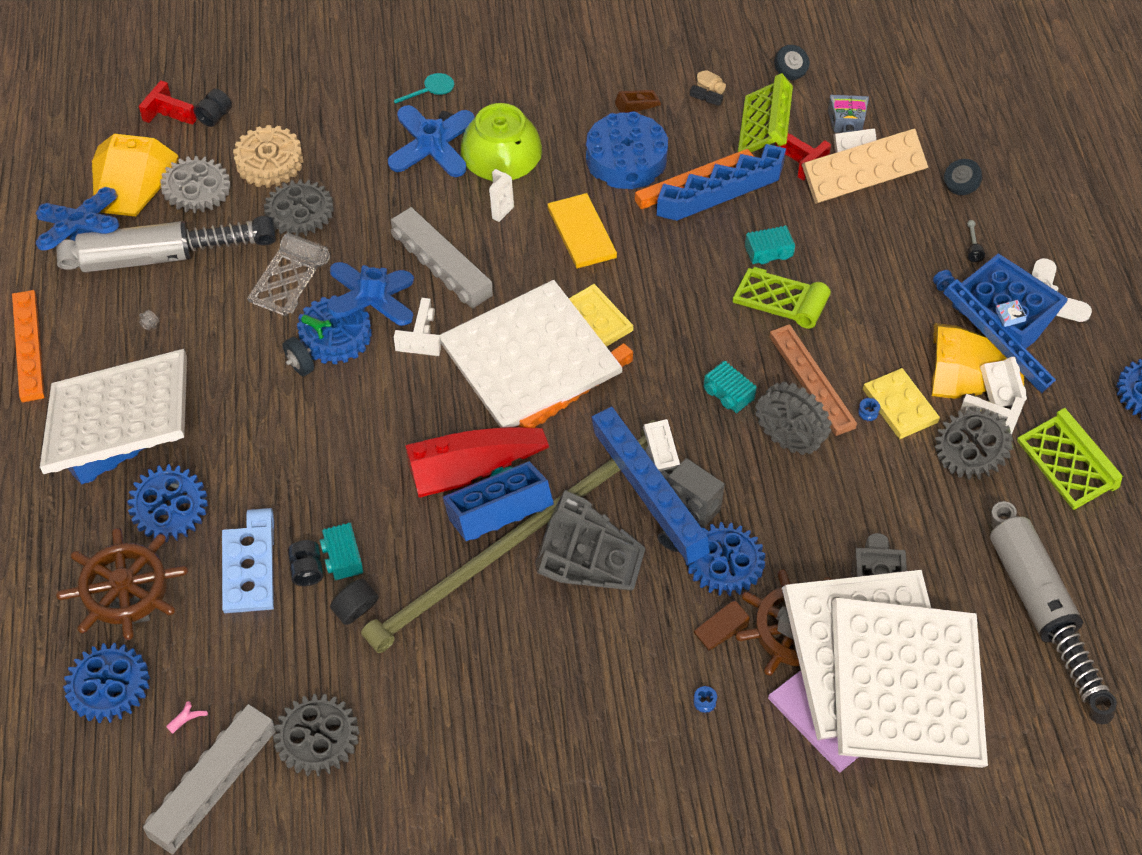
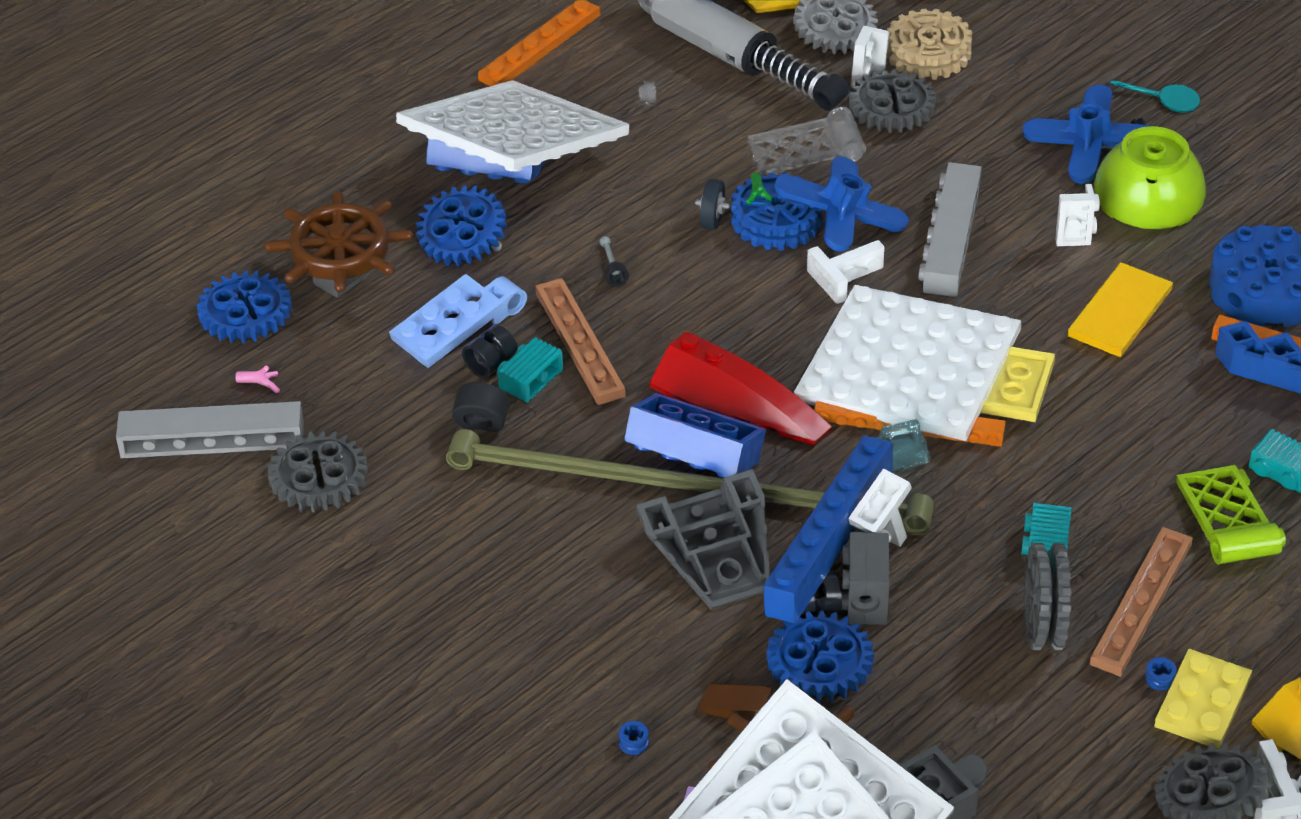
camera: 55 degrees right, 10 degrees down
(252, 190) = (869, 53): none -> white bracket
(299, 447) = (615, 272): none -> black hinge
(341, 507) = (580, 341): none -> nougat plate
(599, 400) = (908, 444): none -> clear light blue piece

